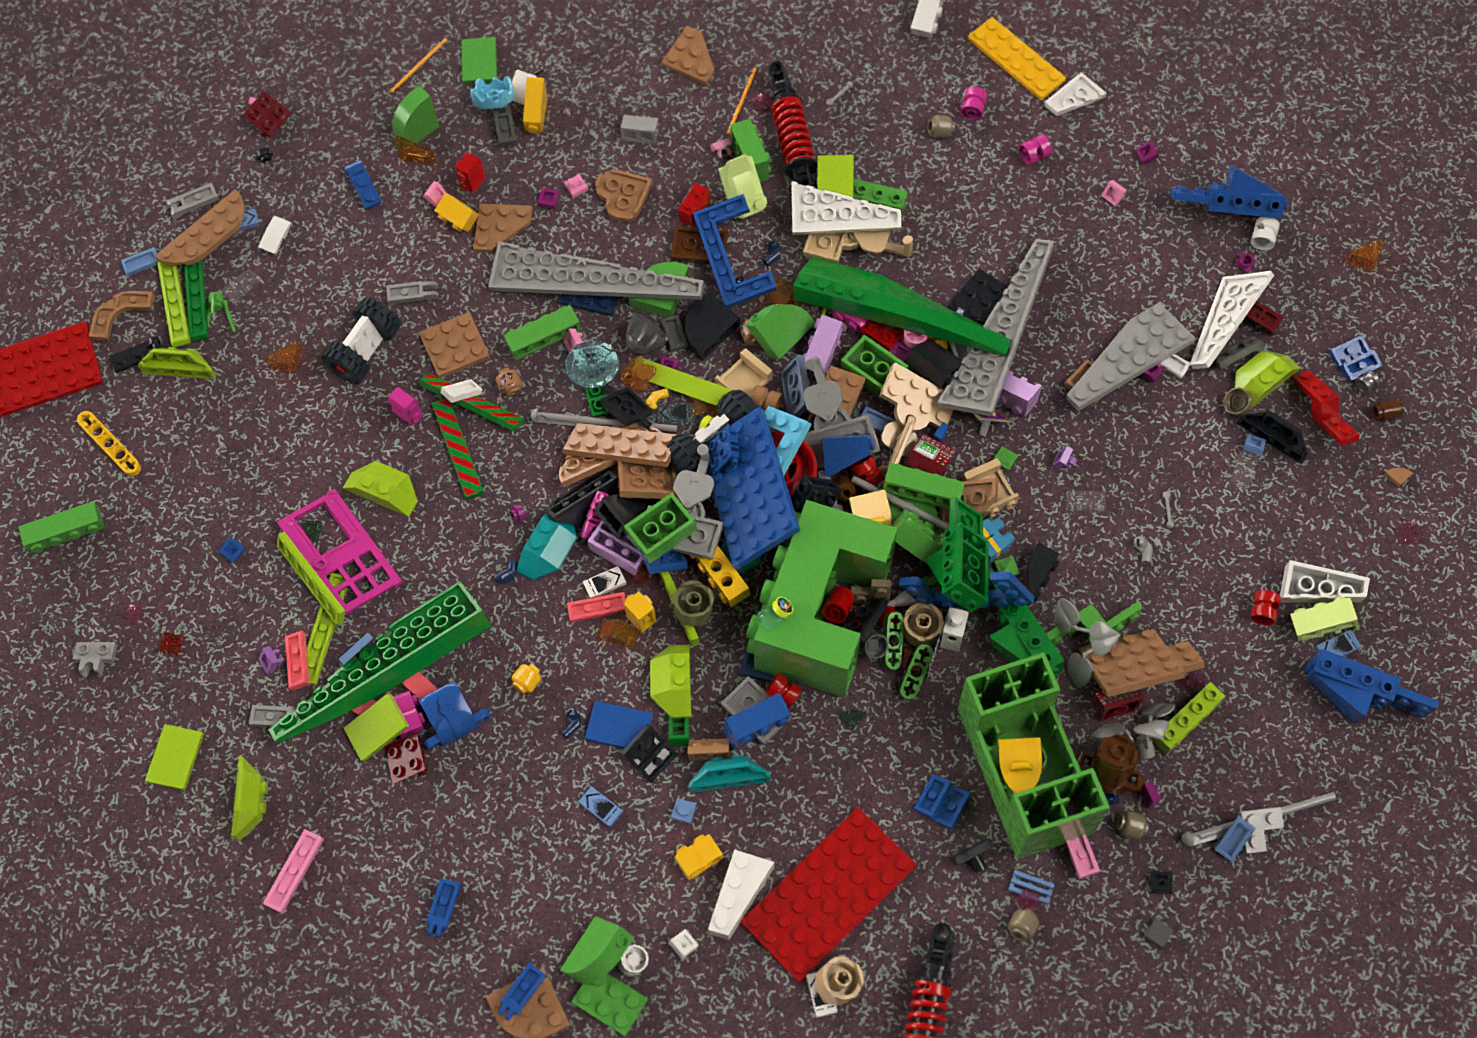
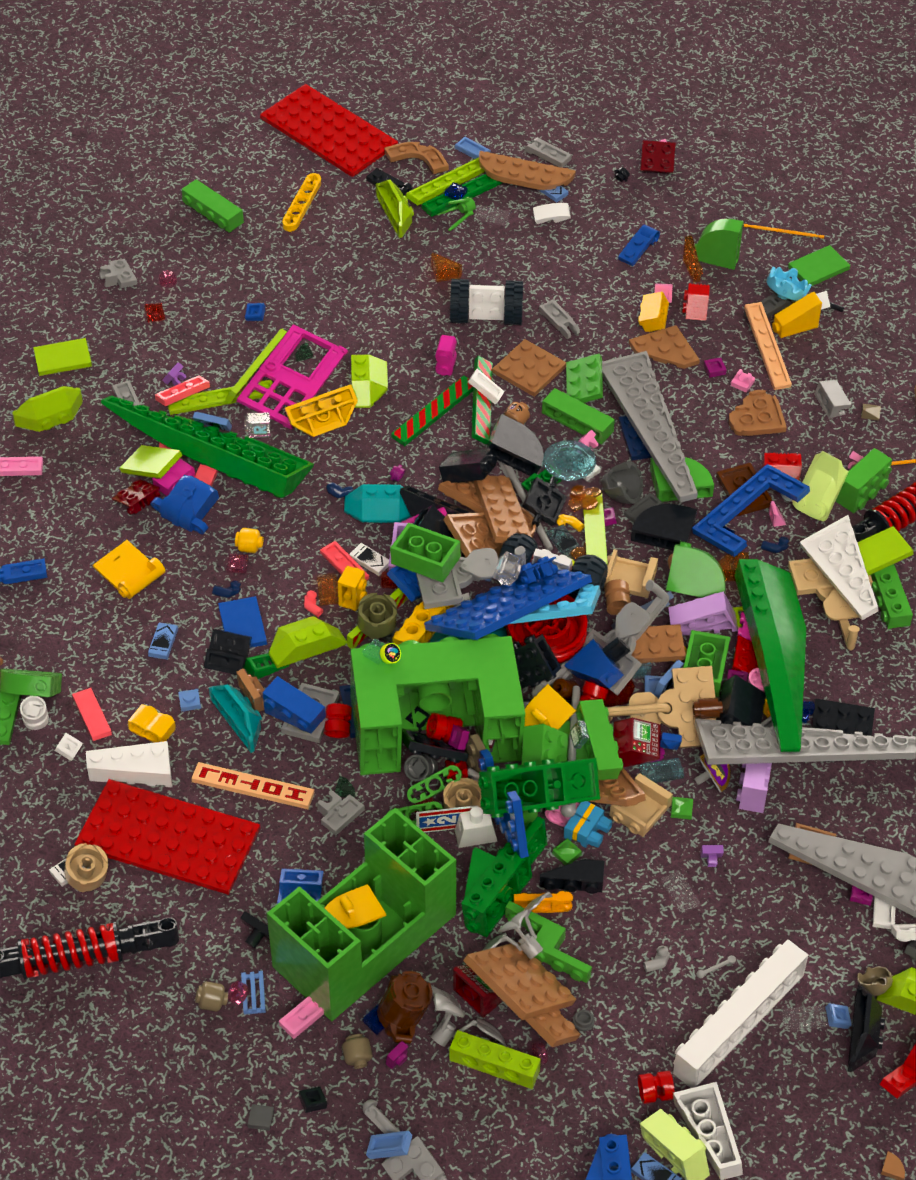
camera: 60 degrees right, 15 degrees down
(195, 301) = (456, 191): none -> clear blue tile
(386, 609) = (258, 425): none -> clear brick
(405, 542) = (323, 411): none -> yellow wedge
(499, 803) = (129, 569): none -> yellow door
(501, 306) = (585, 378): none -> bright green plate
(544, 700) = (237, 563): none -> clear pink tile
(550, 146) = (767, 346): none -> light nougat tile
(550, 399) = (516, 445): none -> brick
(554, 448) = (468, 465): none -> black brick
(629, 657) = (310, 604): none -> coral arm
(654, 907) = (92, 714): none -> coral tile
(667, 109) = (871, 412): none -> dark tan slope
(717, 469) = (508, 568): none -> clear brick
(741, 237) = (775, 515): none -> bright pink slope
(809, 795) = (253, 785): none -> light nougat tile
(846, 426) = (616, 649): none -> black tile
(860, 597) = (459, 737): none -> magenta plate
(877, 403) = (666, 681): none -> medium blue tile
(878, 733) = (339, 812): none -> light grey plate
(913, 498) = (579, 734): none -> tile
(933, 388) = (707, 708): none -> reddish brown brick
(961, 459) = (662, 770): none -> clear light blue tile
(1050, 607) = (557, 903): none -> light orange hinge
(1176, 633) = (583, 1020): none -> dark grey plate
(1231, 513) = (739, 1014): none -> white brick

